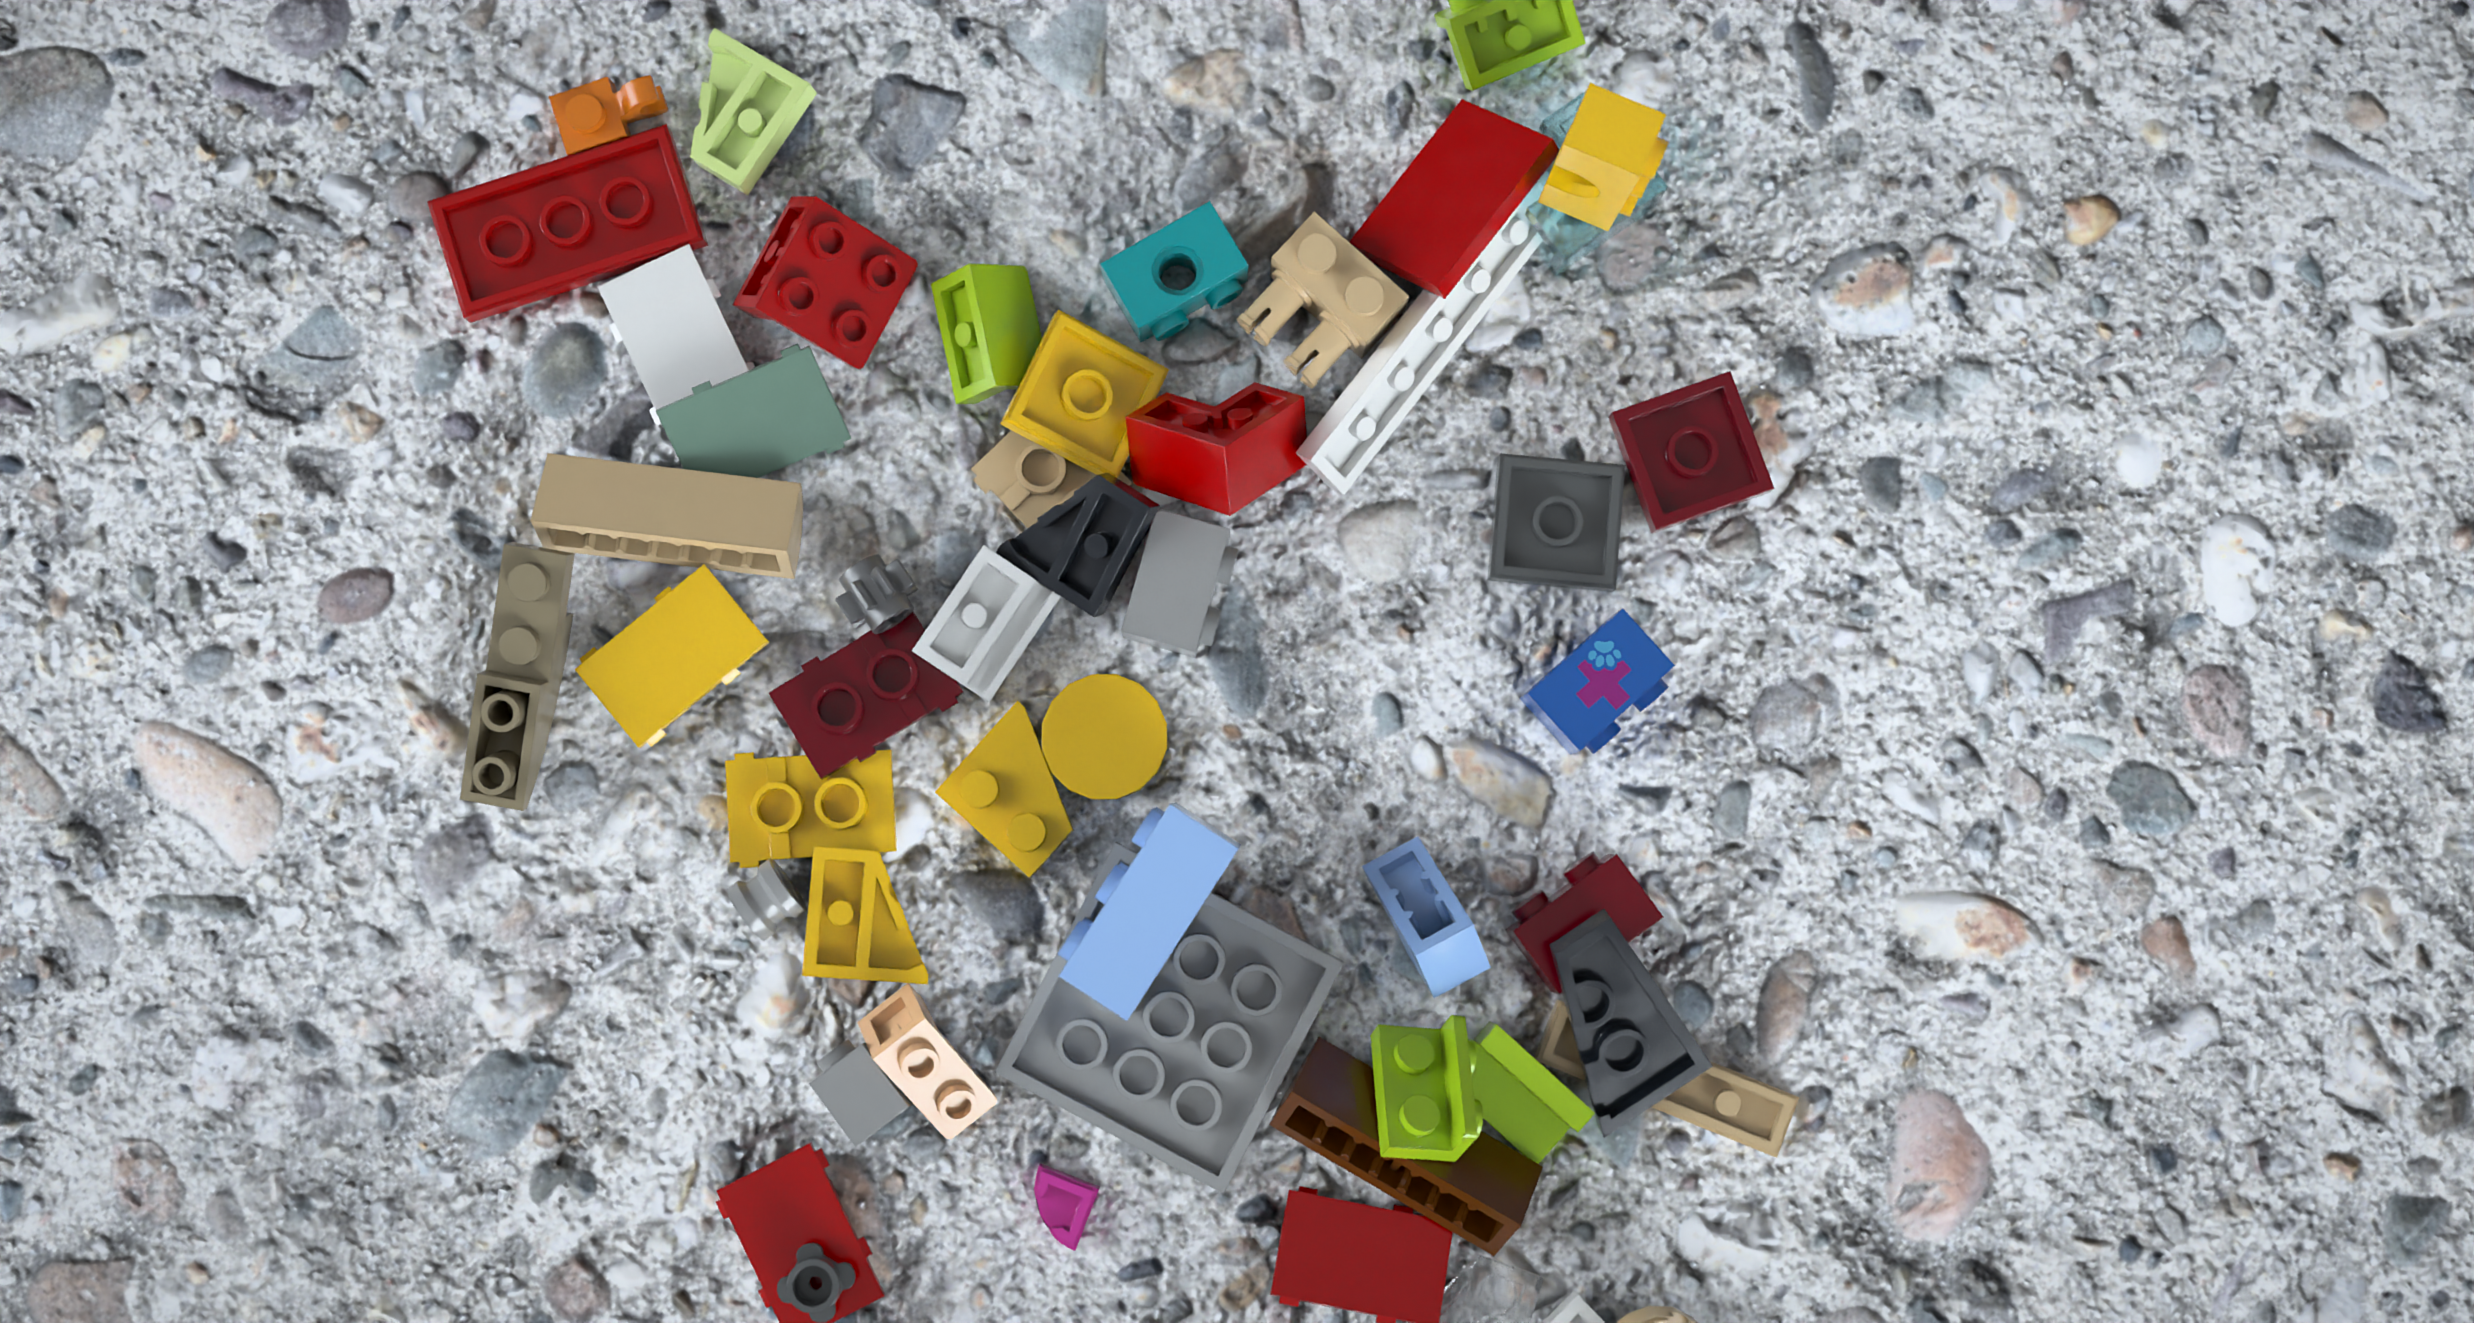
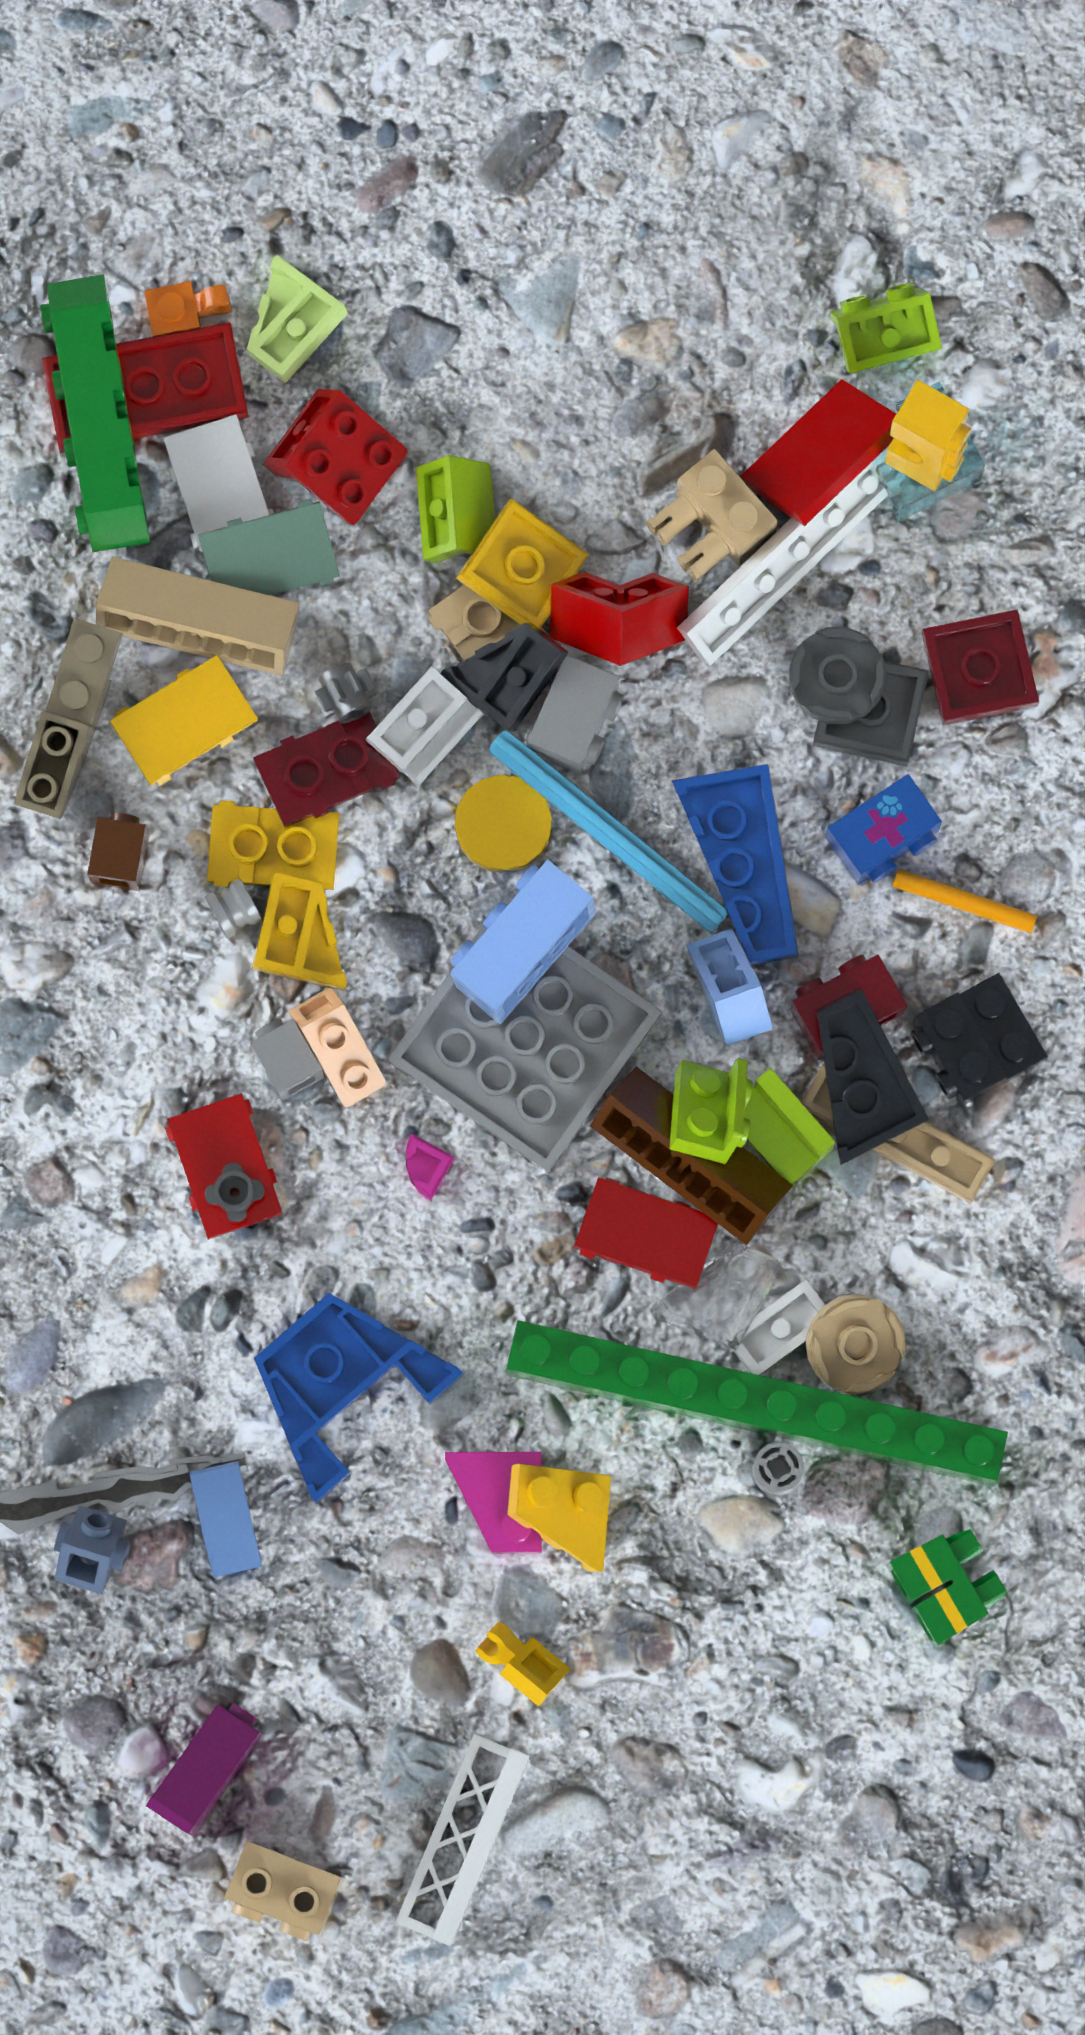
camera: 15 degrees right, 5 degrees down
(498, 267) = (96, 412): none -> green brick
(607, 843) = (118, 852): none -> reddish brown brick
(1010, 793) = (426, 856): yellow wing -> none
(1192, 241) = (618, 460): teal brick -> none
(1241, 731) = (608, 831): none -> medium azure axle
(1417, 727) = (742, 845): none -> blue wing
(1510, 487) = (837, 675): none -> dark grey tile
(1711, 759) = (964, 901): none -> light orange bar
(1754, 942) = (977, 1040): none -> black plate

